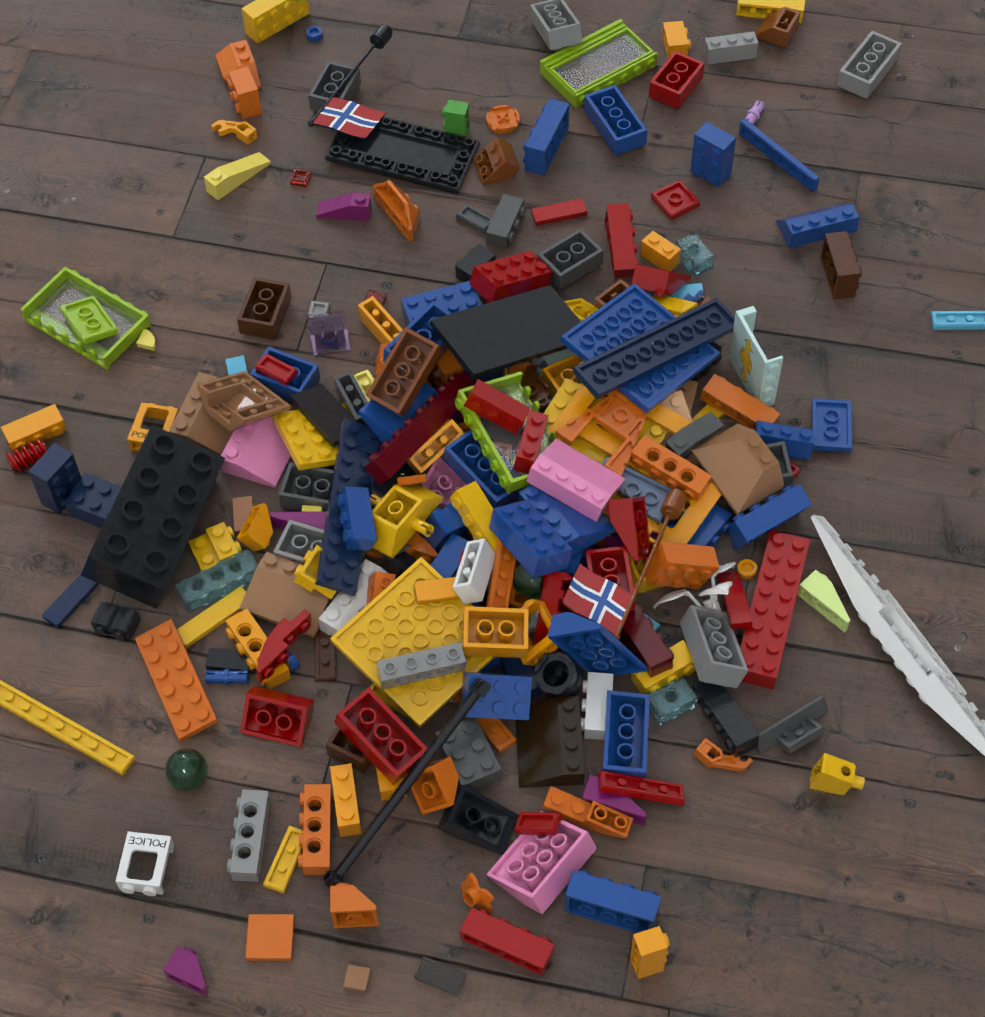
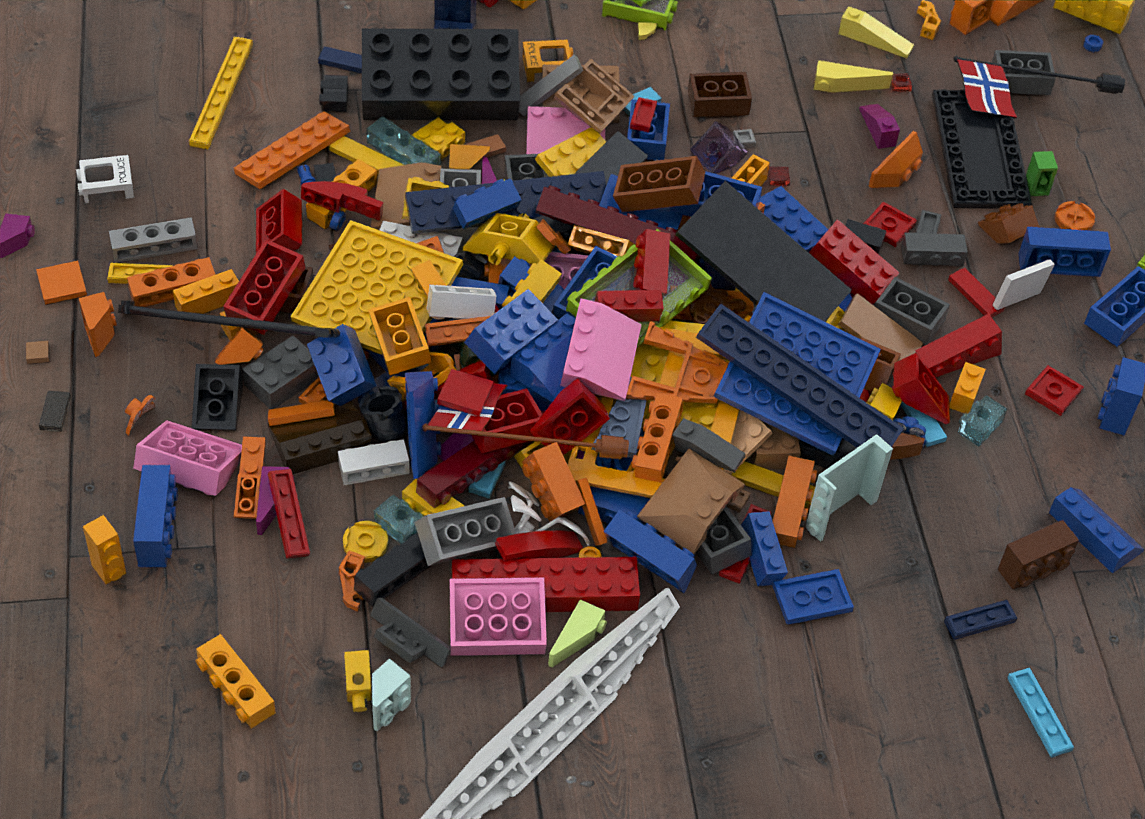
camera: 65 degrees right, 5 degrees down
(186, 769) = (202, 178): clear green helmet -> none
(203, 420) = (550, 84): none -> light grey tile
(278, 217) = (844, 78): none -> light yellow slope
(421, 665) = (342, 290): light grey brick -> none
(459, 241) = (893, 221): none -> red tile
(507, 940) = (99, 449): red brick -> none
(522, 751) = (301, 412): none -> orange tile
(538, 823) = (226, 442): red tile -> none
(574, 174) = (1023, 284): none -> white tile
(585, 286) = (867, 321): none -> medium nougat tile
(585, 595) = (465, 392): none -> red tile
(626, 733) = (342, 487): blue slope -> none
(680, 737) = (366, 539): none -> yellow tile
(723, 550) = (591, 513): none -> orange tile
(804, 649) = (497, 616): none -> bright pink slope
(836, 861) = (218, 652): none -> light orange brick
(859, 749) = (389, 693): none -> light aqua slope
(878, 326) = (980, 619): none -> dark blue tile

